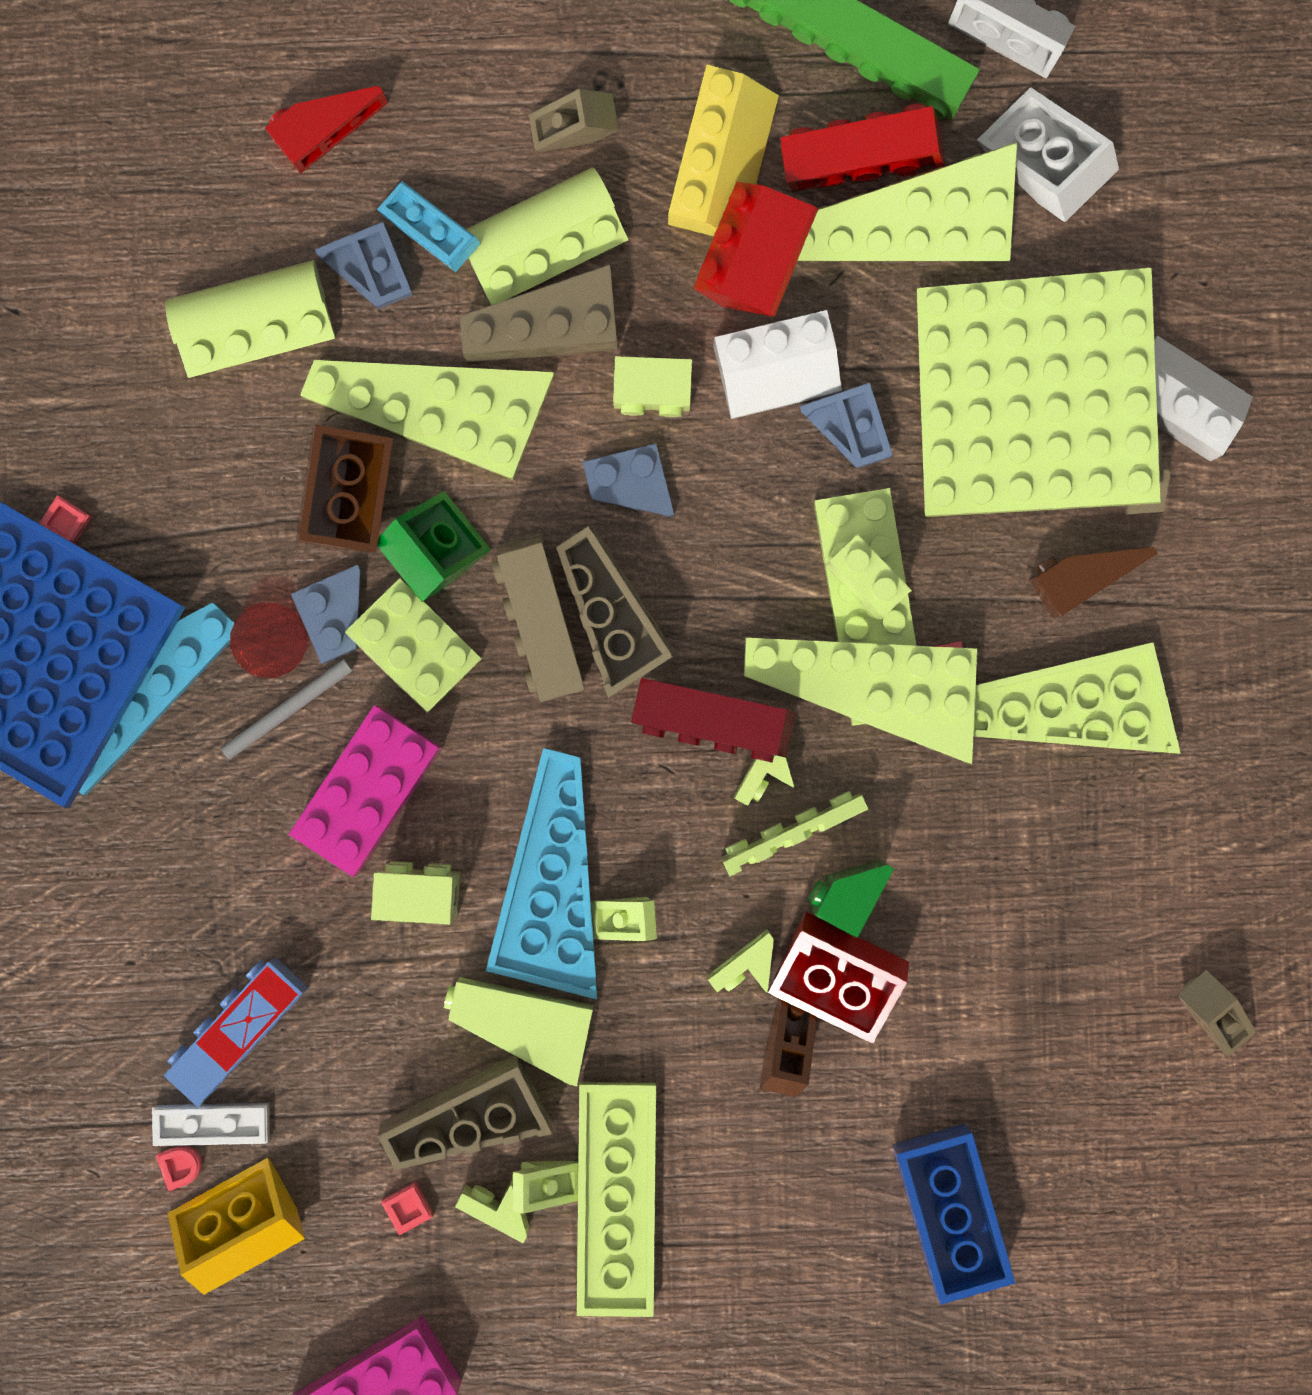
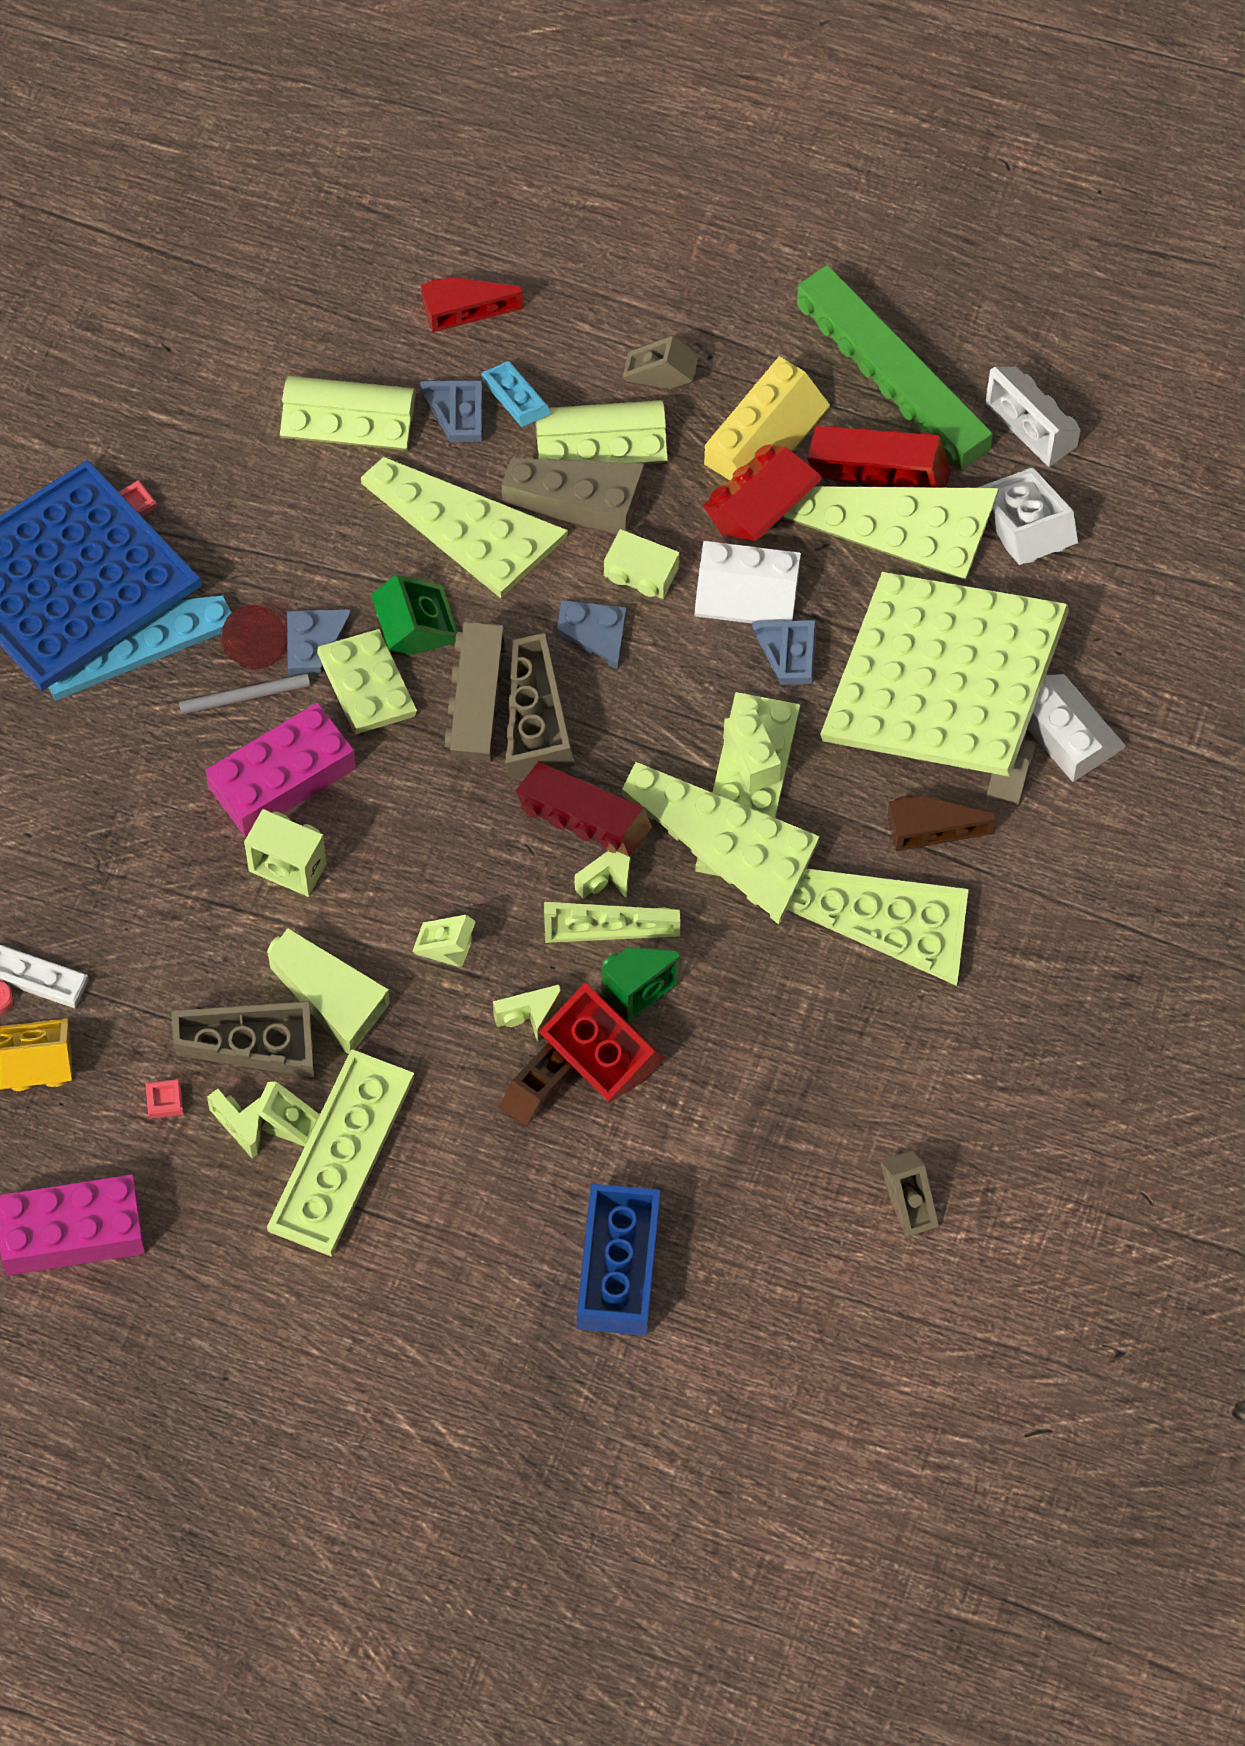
camera: 20 degrees right, 25 degrees down
(235, 1031) = (91, 907): medium blue brick -> none
(344, 489) = (363, 548): reddish brown slope -> none
(547, 905) = (387, 907): medium azure wing -> none

